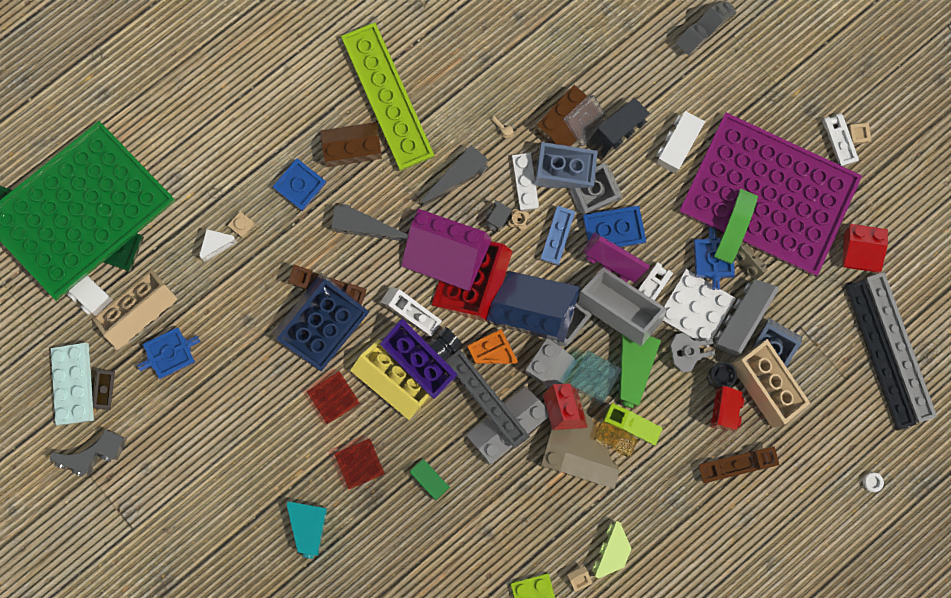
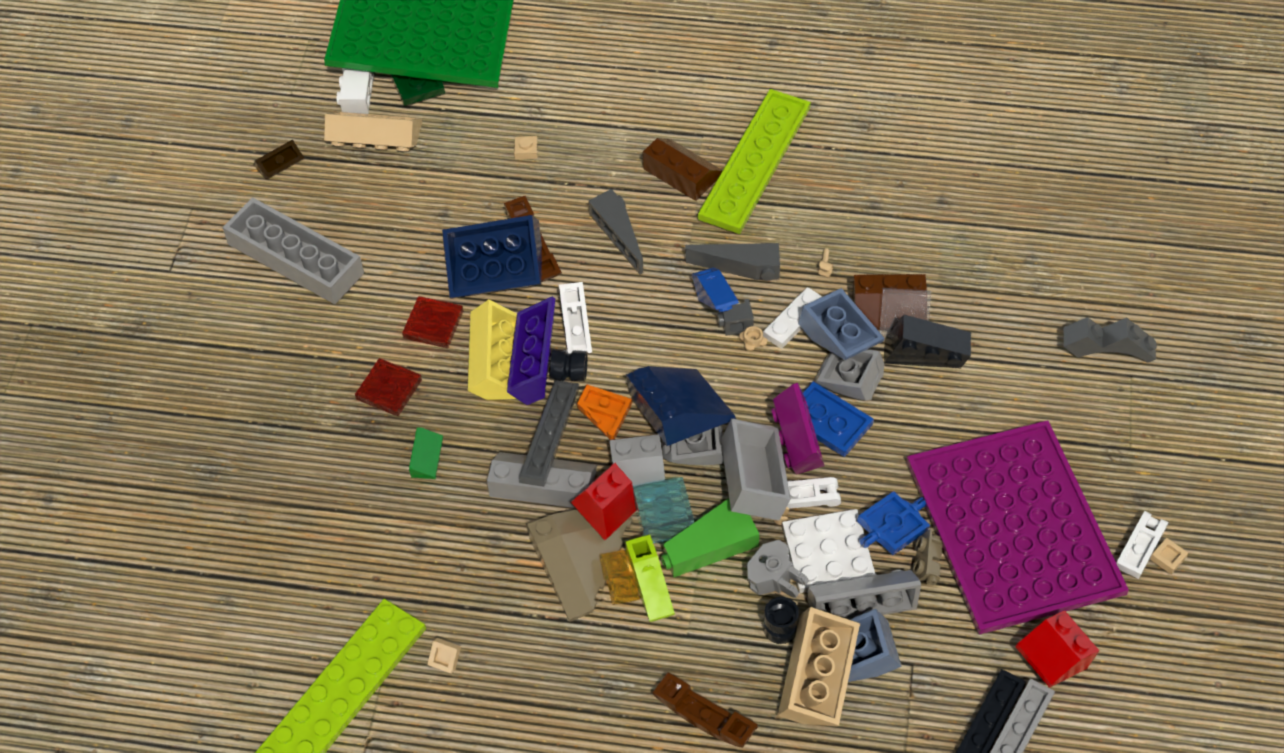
camera: 60 degrees right, 25 degrees down
(72, 384) = (263, 135): light aqua plate -> none
(109, 446) = (227, 195): dark grey arch -> none
(169, 353) = (356, 179): blue plate -> none
(196, 441) = (293, 250): none -> light grey brick
(215, 243) = (487, 139): white slope -> none
(299, 184) = (605, 158): blue plate -> none
(307, 527) = (287, 391): teal slope -> none
(445, 249) = (660, 295): magenta slope -> none
(474, 215) = (714, 290): none -> blue slope
(487, 283) = (660, 340): red slope -> none
(557, 235) = (771, 378): medium blue plate -> none
(613, 552) = (499, 665): yellowish green slope -> none
(679, 142) = (974, 406): white brick -> none
(727, 409) = (751, 649): red slope -> none
(736, 226) = (943, 508): bright green slope -> none

